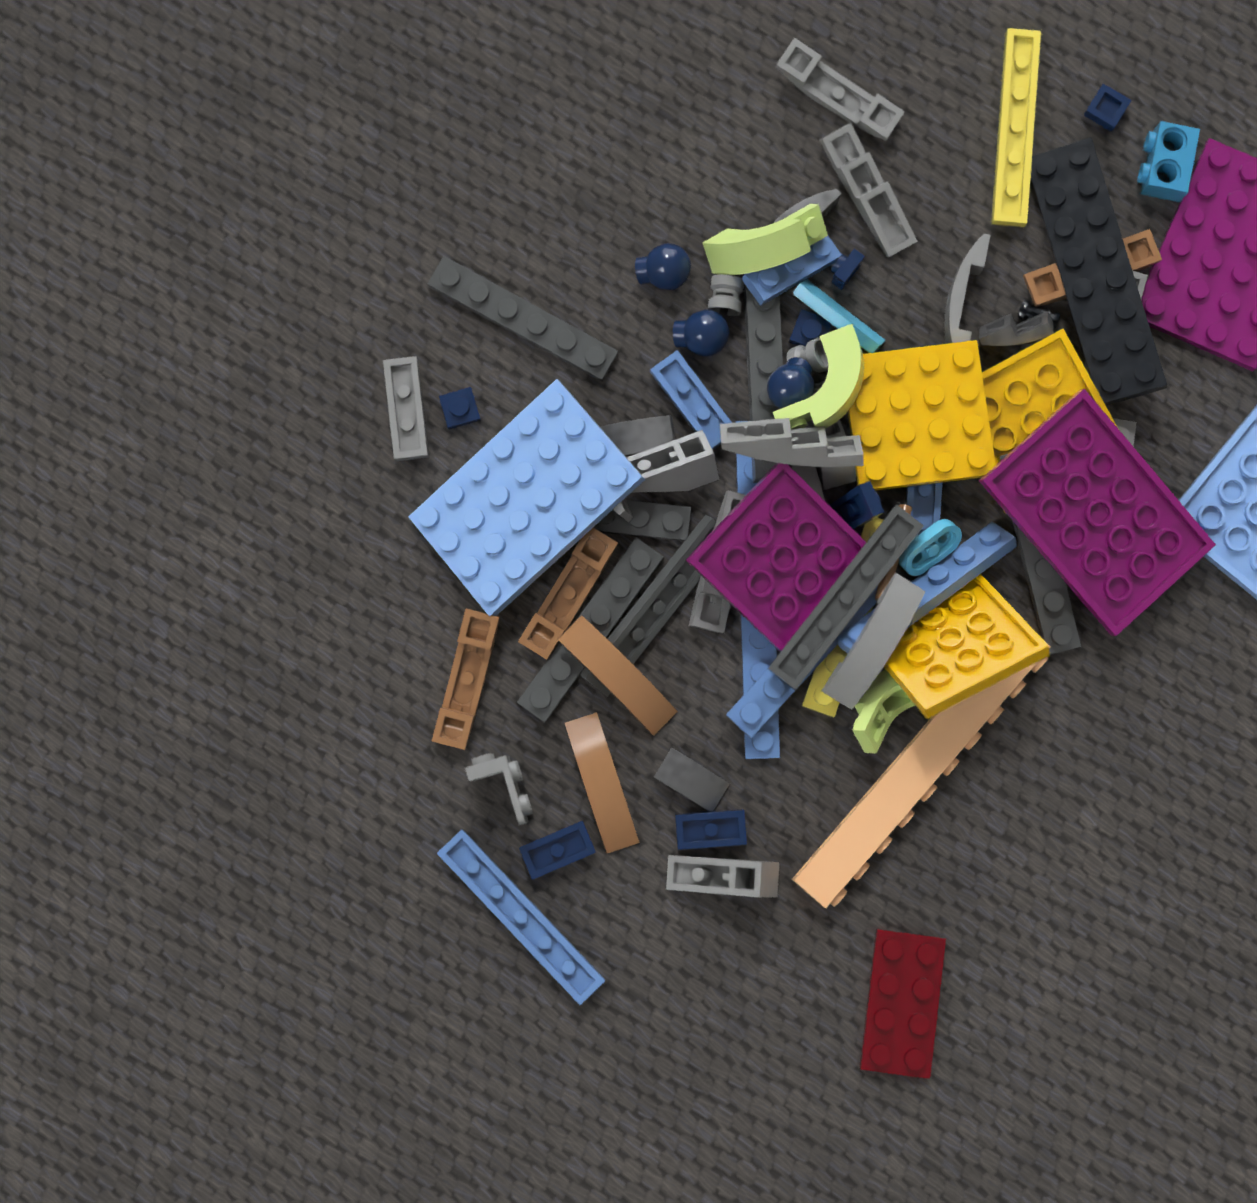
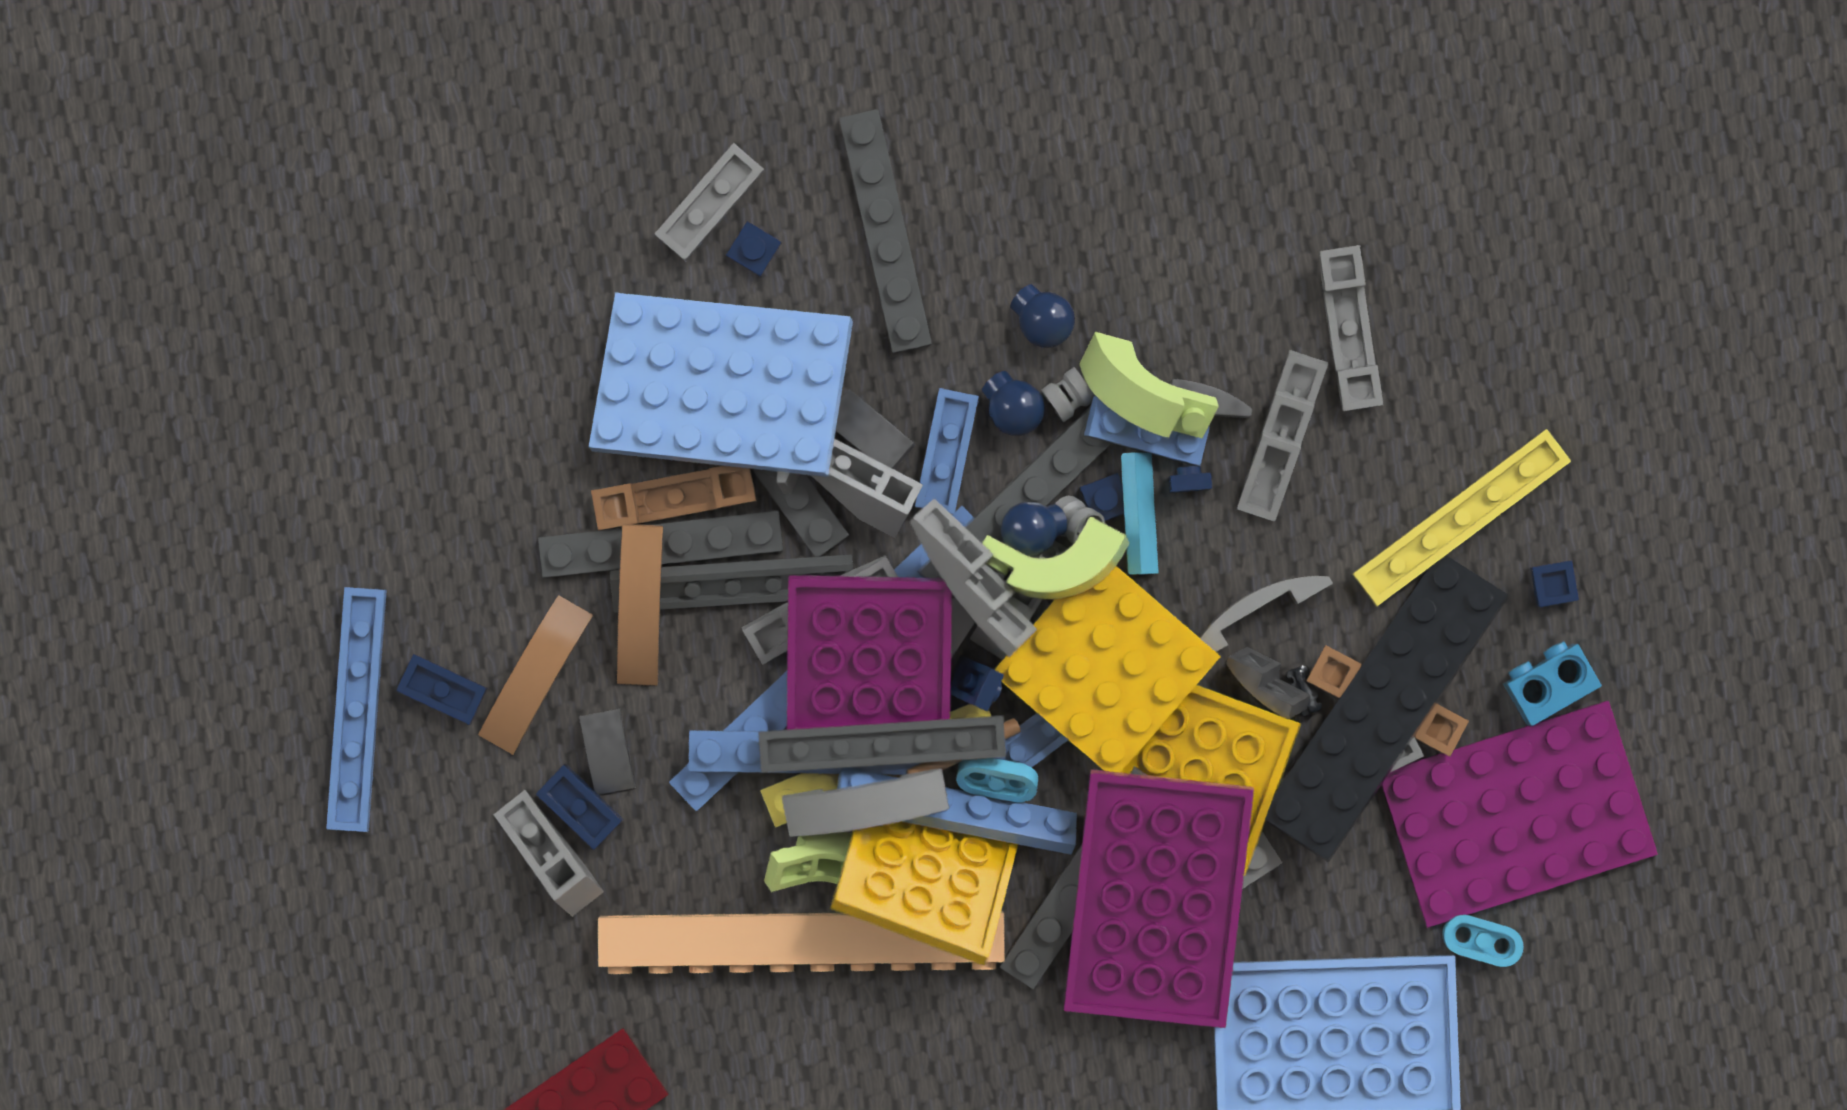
camera: 40 degrees right, 5 degrees up
(466, 679) = (517, 475): medium nougat slope -> none
(488, 765) = (458, 565): light grey bracket -> none

